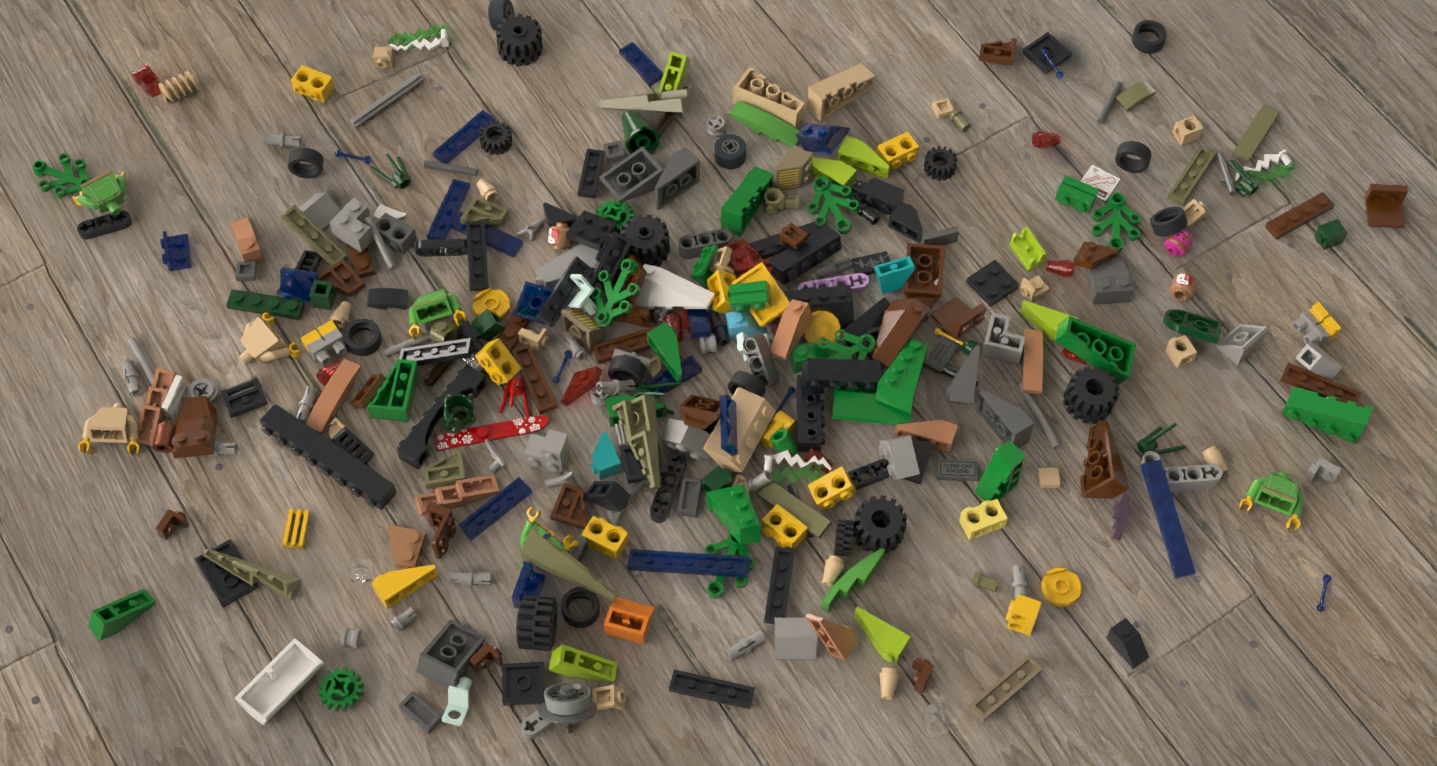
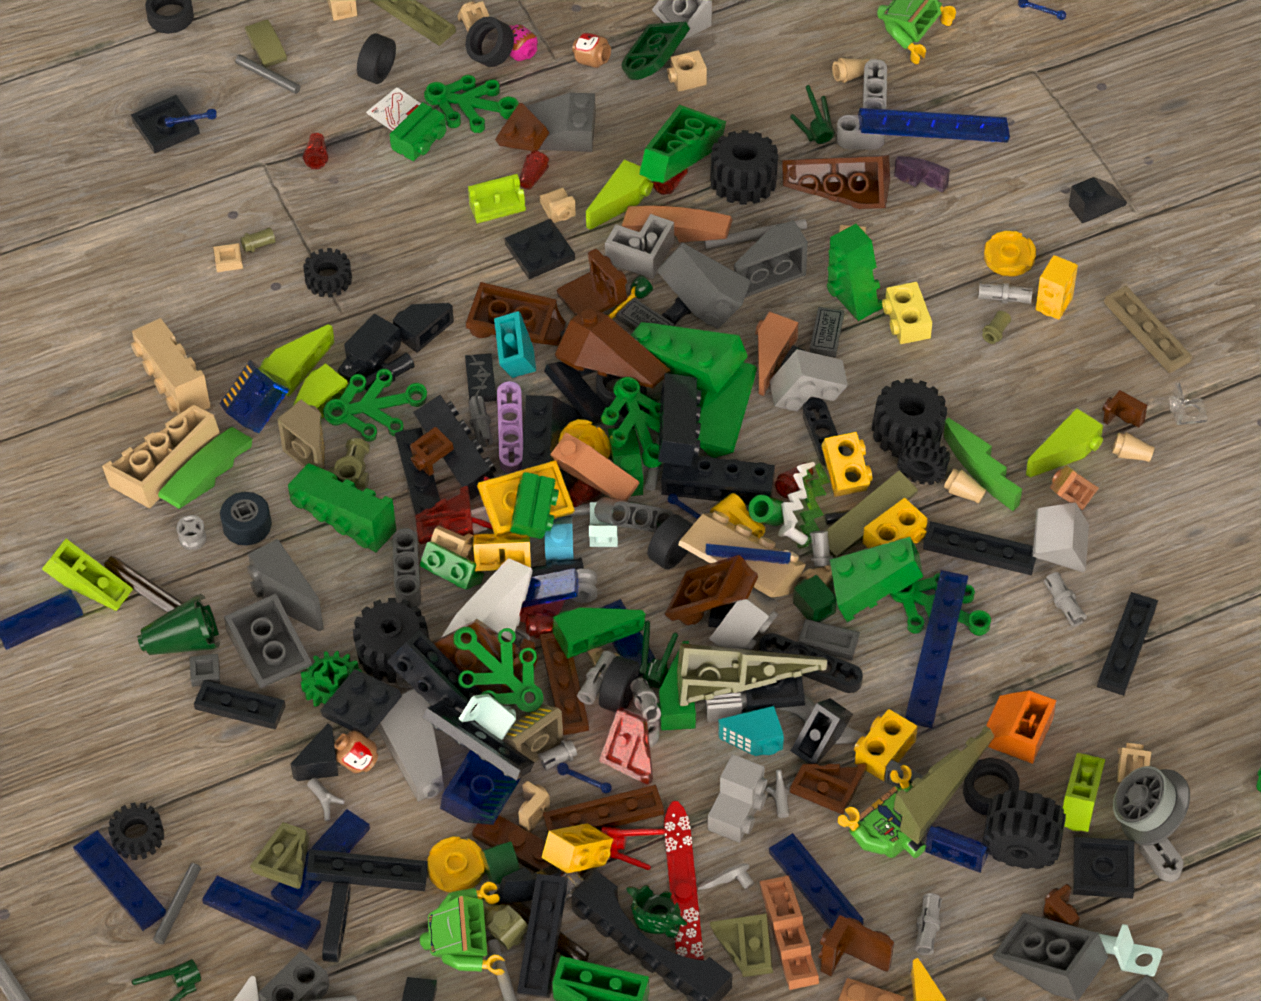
camera: 80 degrees left, 5 degrees down
(488, 191) = (240, 850): tan cone -> none
(658, 101) = (133, 588): wedge -> none
(898, 150) = (295, 313): yellow brick -> none
(941, 237) = (457, 291): dark grey tile -> none
(998, 52) = (148, 176): reddish brown wing -> none

